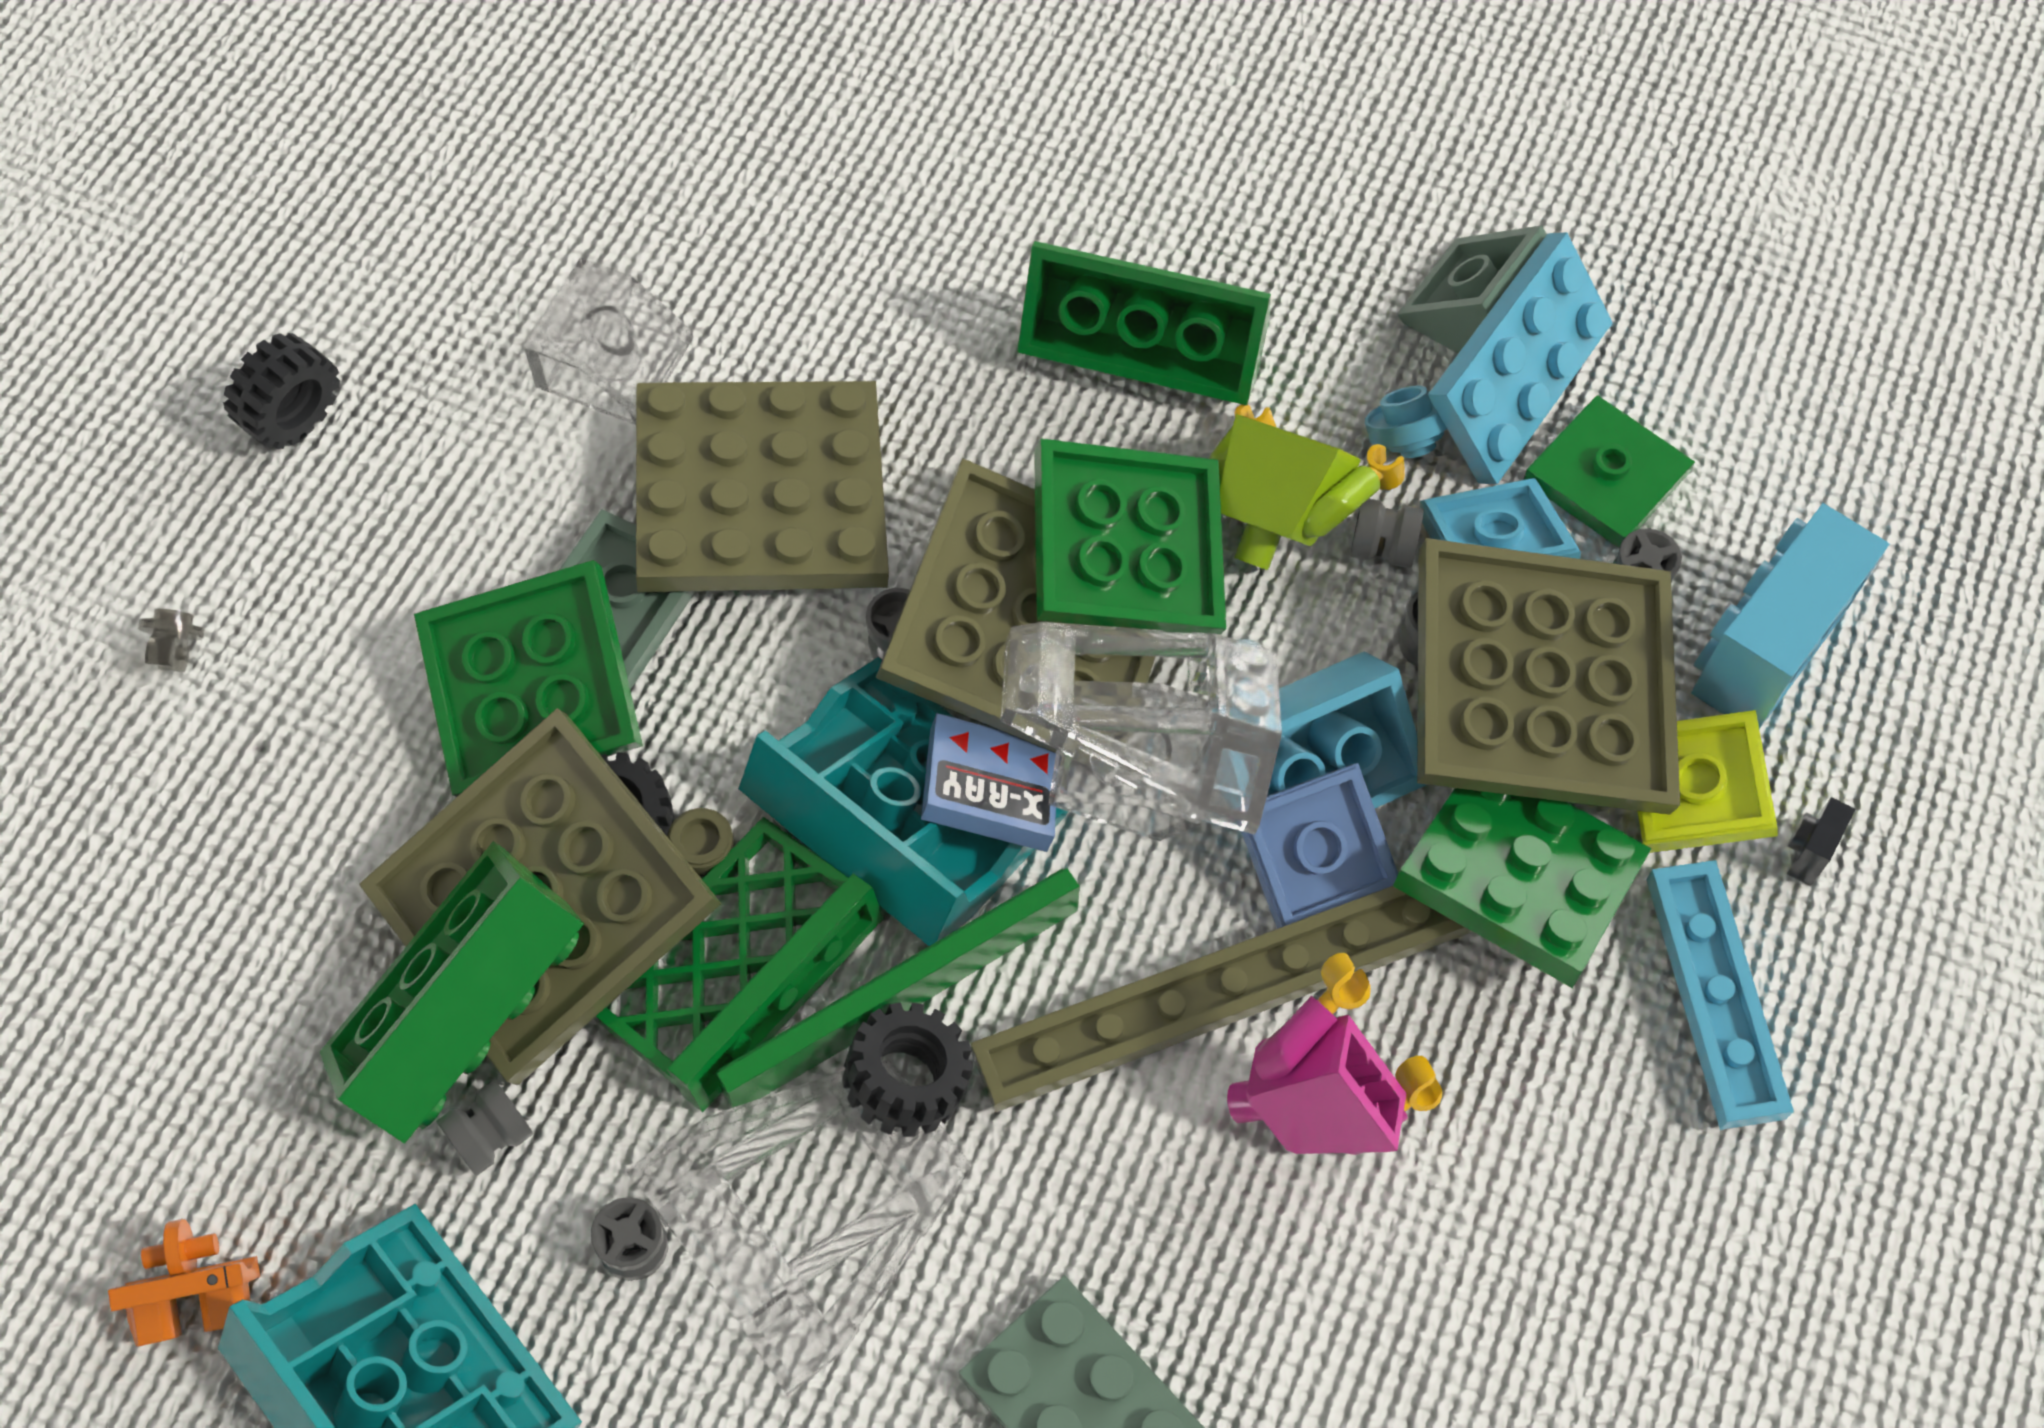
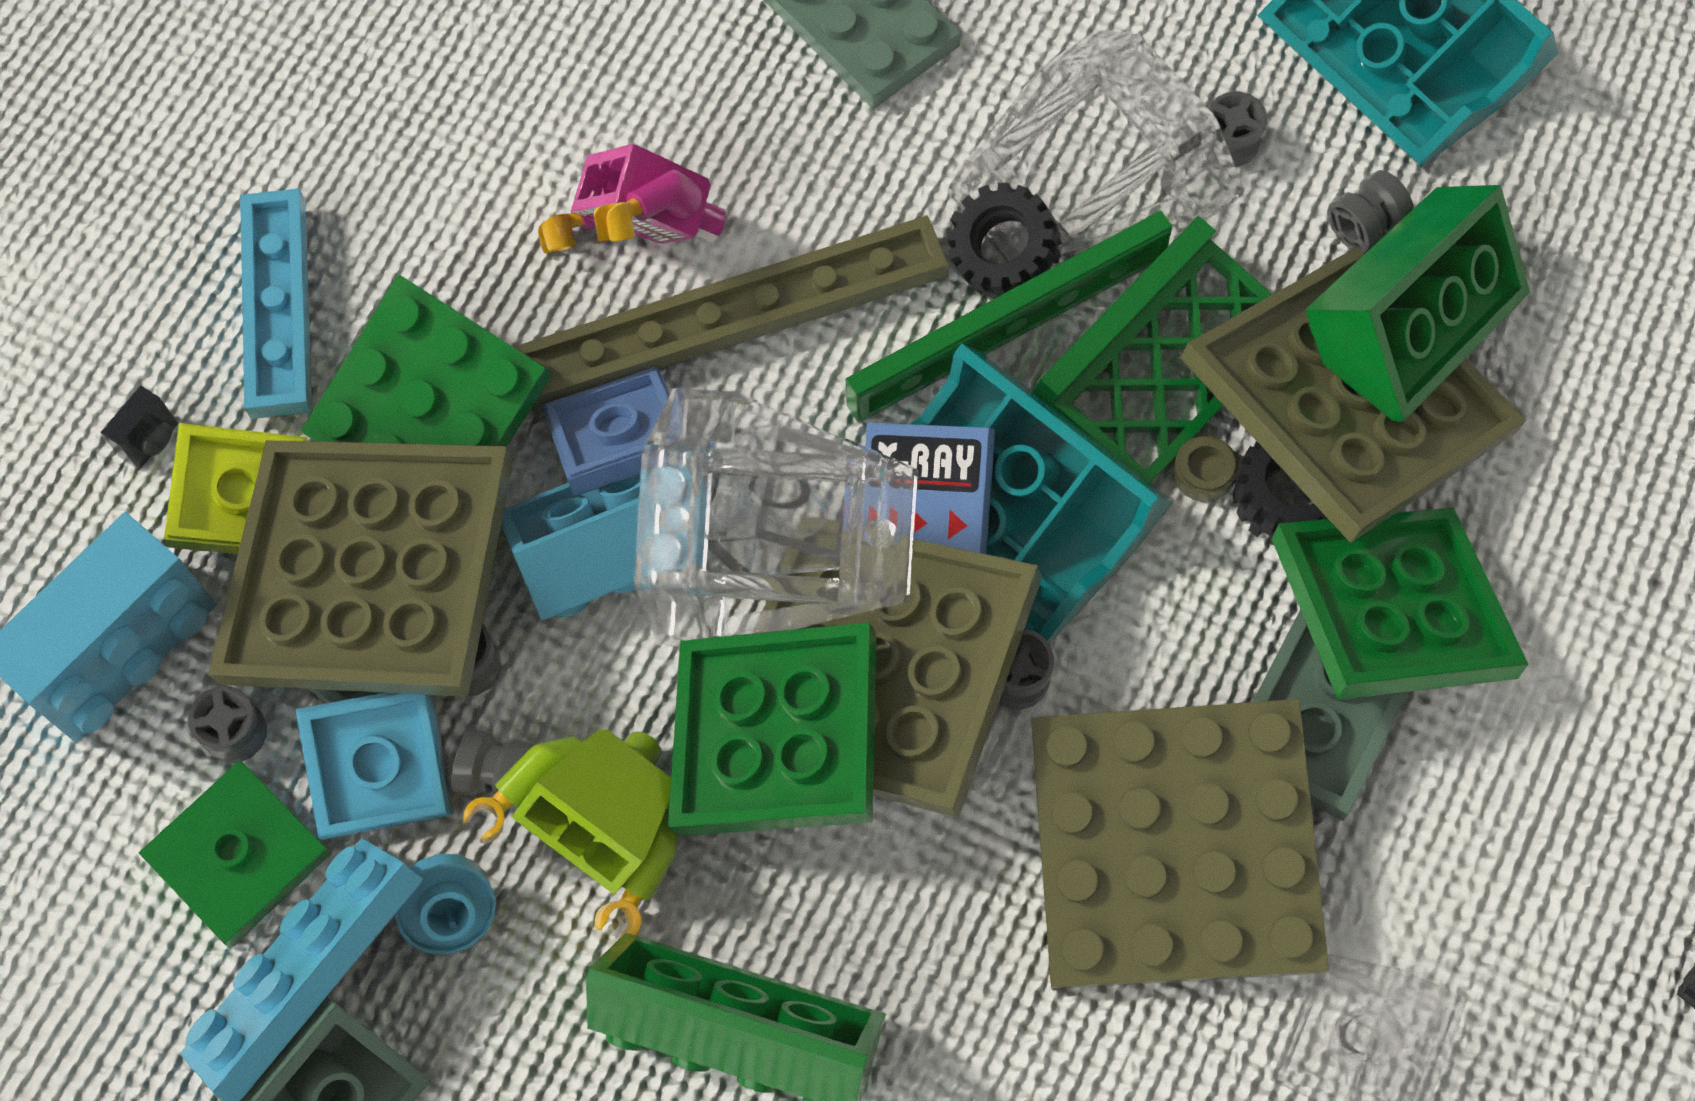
camera: 175 degrees left, 5 degrees up
(153, 1302) = (1597, 99): orange hips -> none

